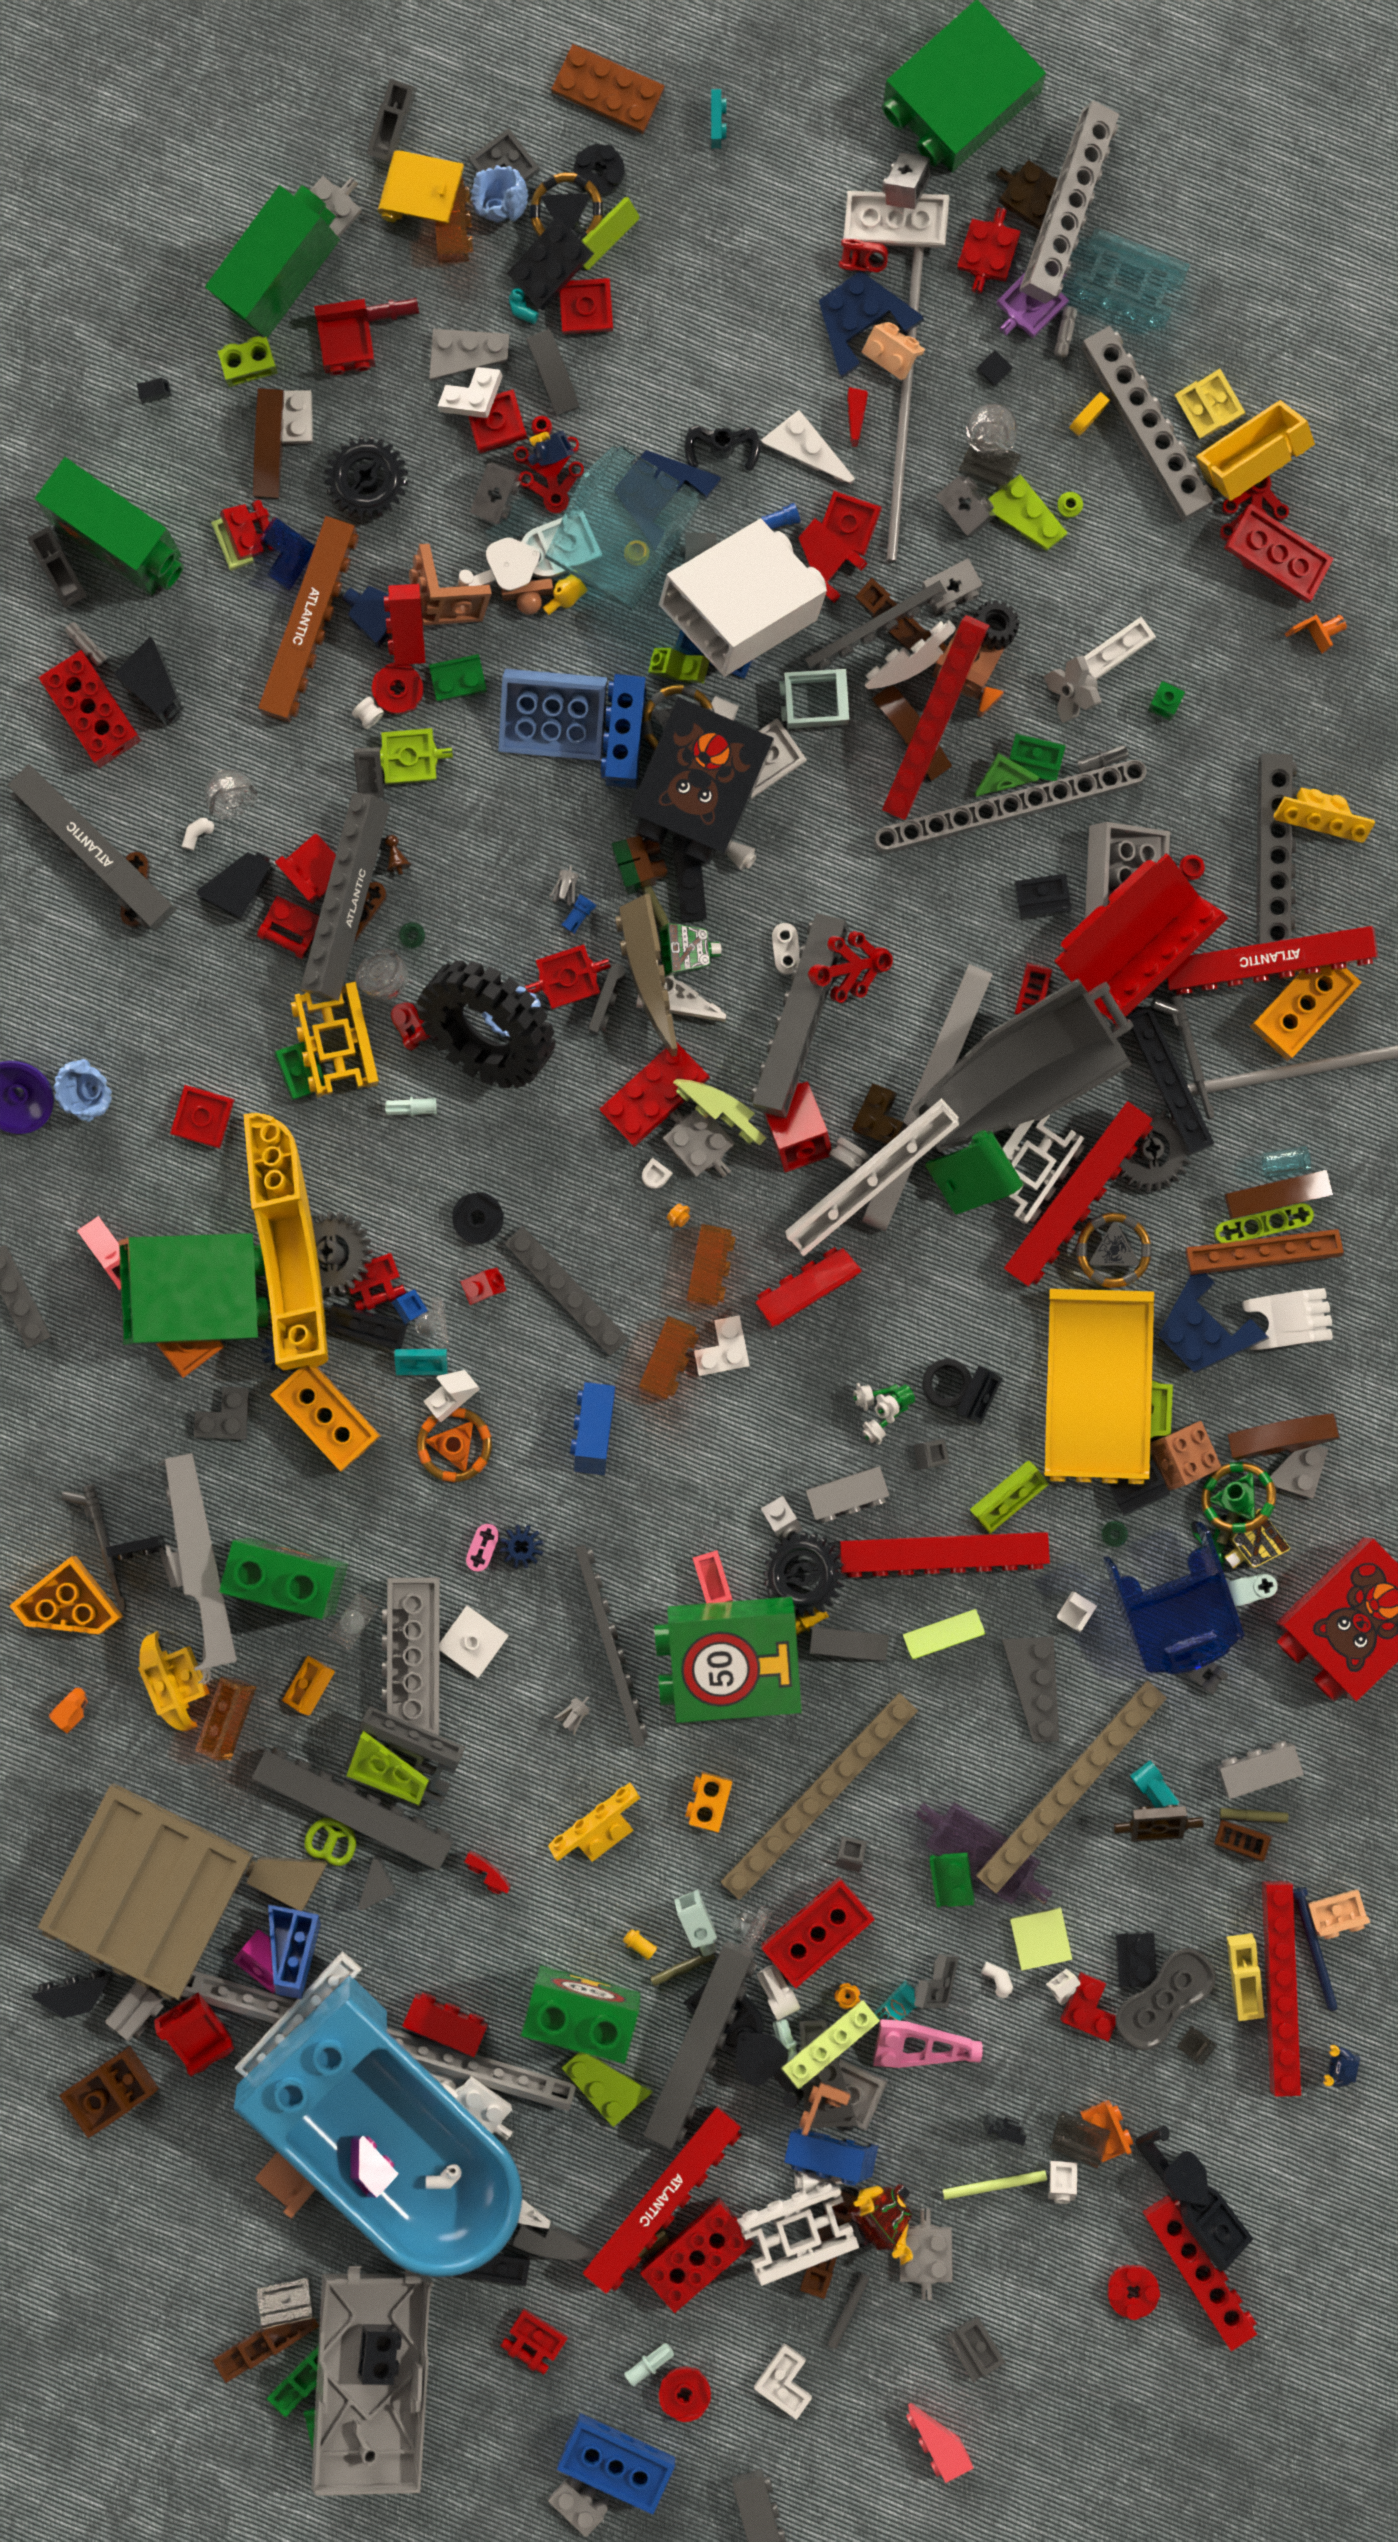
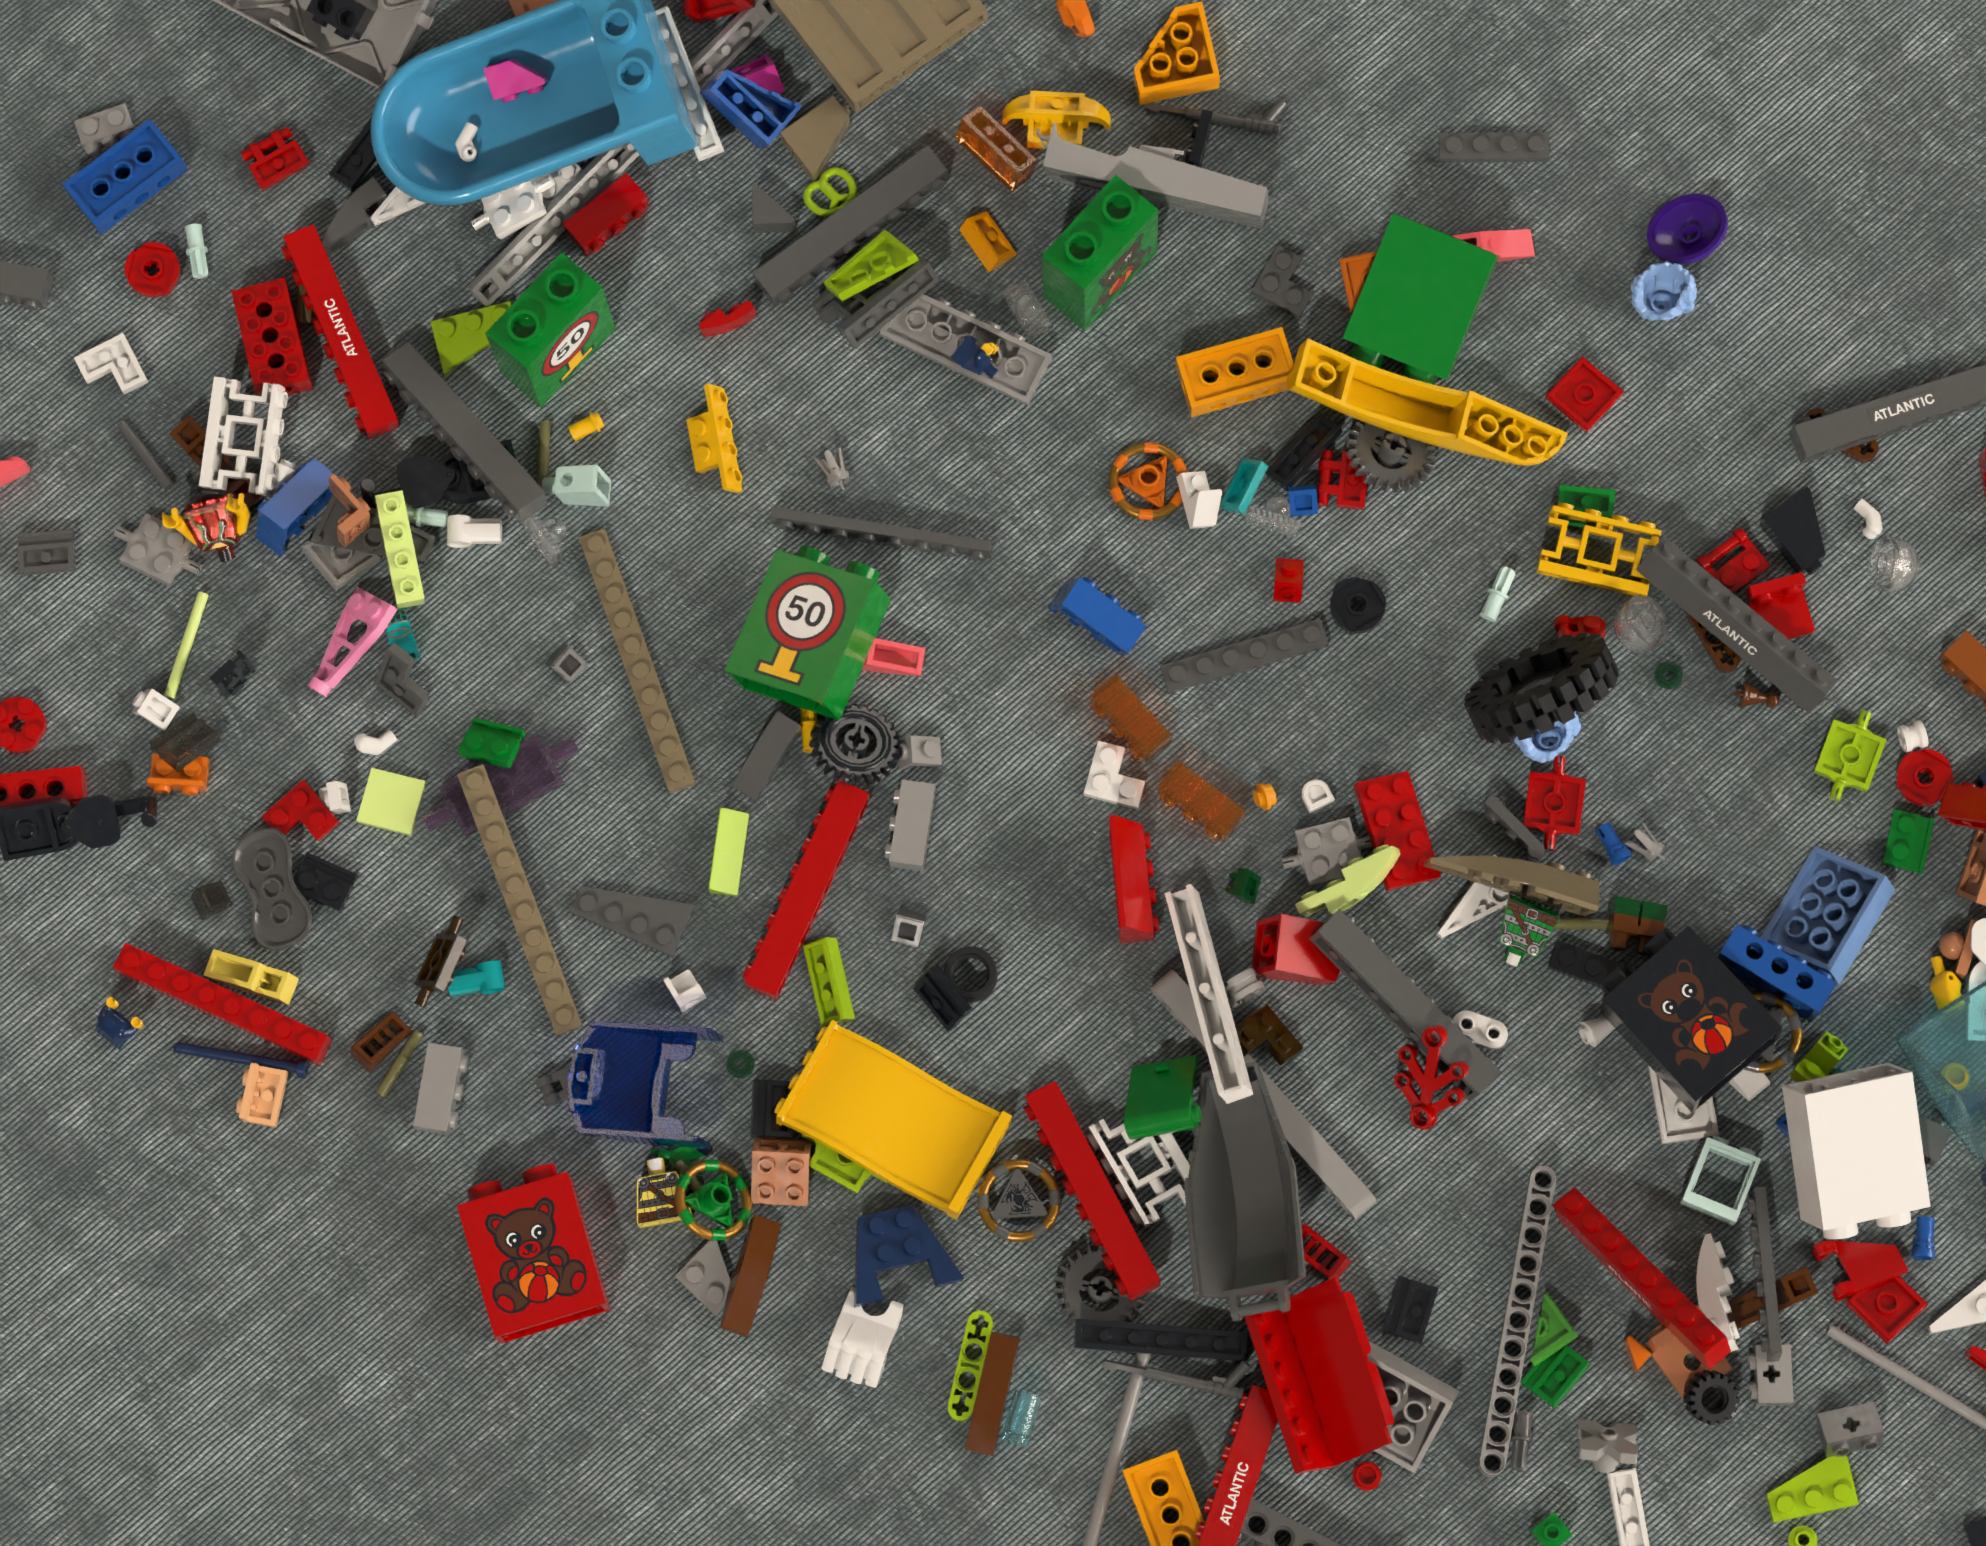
camera: 125 degrees right, 10 degrees down
(369, 771) = (1851, 707): dark grey plate -> none
(424, 1639) = (974, 358): none -> dark blue piece
(472, 1641) = (951, 409): white plate -> none
(488, 1550) = (1040, 456): bright pink beam -> none
(521, 1555) = (1008, 499): dark blue gear -> none
(715, 1803) = (680, 558): light orange brick -> none
(762, 1194) = (1245, 885): none -> dark green tile
(817, 1950) = (526, 601): red brick -> none
(844, 2002) = (438, 587): light orange plate -> none
(887, 1407) = (975, 897): white plant -> none
(905, 720) = (1667, 1257): reddish brown slope -> none
(990, 468) = (1884, 1478): clear smoke plate -> none
(991, 429) = (1917, 1495): clear cylinder -> none
(1245, 1589) = (619, 1164): light aqua piece -> none
(1264, 1252) = (942, 1349): dark orange plate -> none

